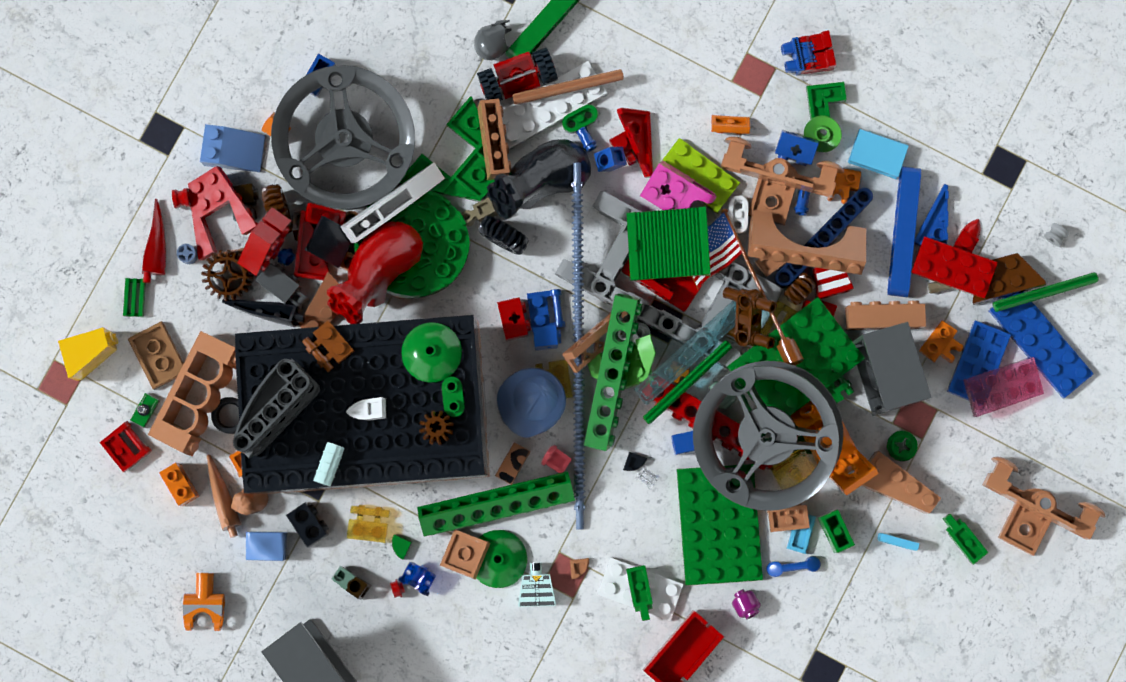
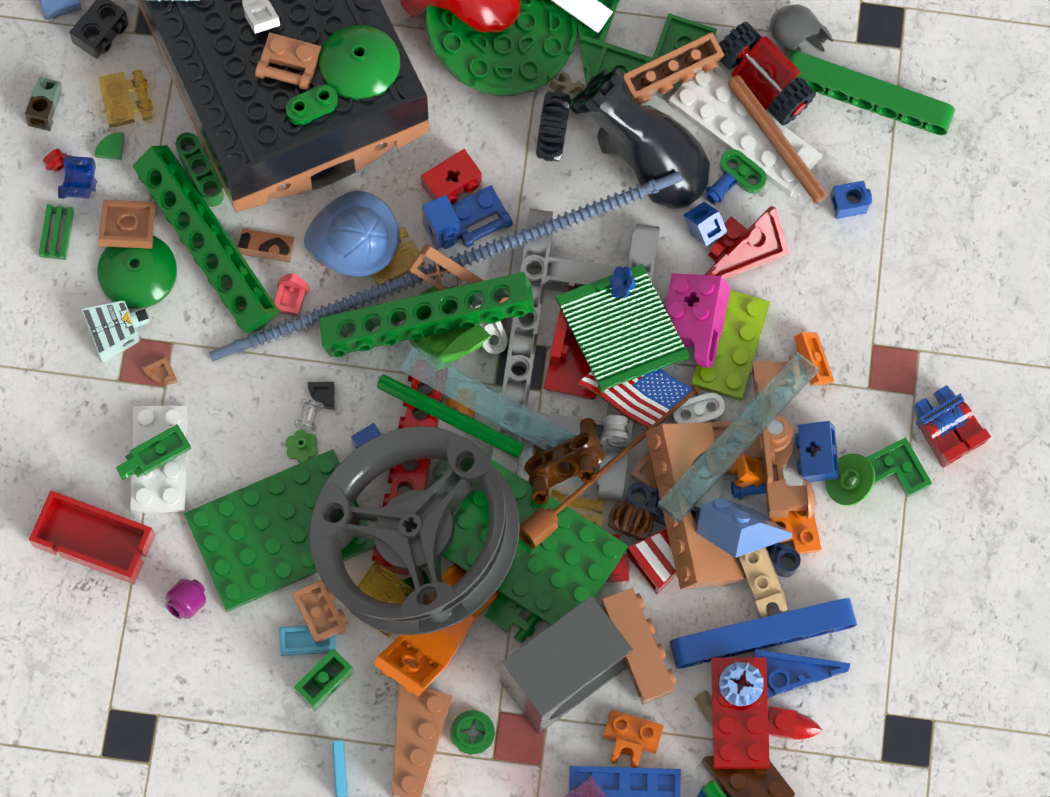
camera: 65 degrees right, 10 degrees down
(409, 397) = (289, 53): none -> nougat plate
(432, 490) = (196, 158): none -> green beam
(435, 598) = (59, 210): none -> green tile
(439, 433) = (264, 86): reddish brown gear -> none
(627, 62) = (843, 207): none -> blue brick
(639, 231) = (622, 282): none -> blue plant
(659, 489) = (304, 451): none -> bright green plant
(737, 276) = (614, 429): none -> light grey wheel
(775, 568) = (269, 667): blue bar -> none
(778, 196) = (738, 437): none -> clear light blue tile
(796, 197) = (748, 470): none -> orange tile
(838, 219) = (738, 527): none -> medium blue slope
(869, 218) = (763, 581): none -> tan plate
(878, 154) = (854, 562): medium azure piece -> none
(929, 259) = (748, 694): none -> light blue gear

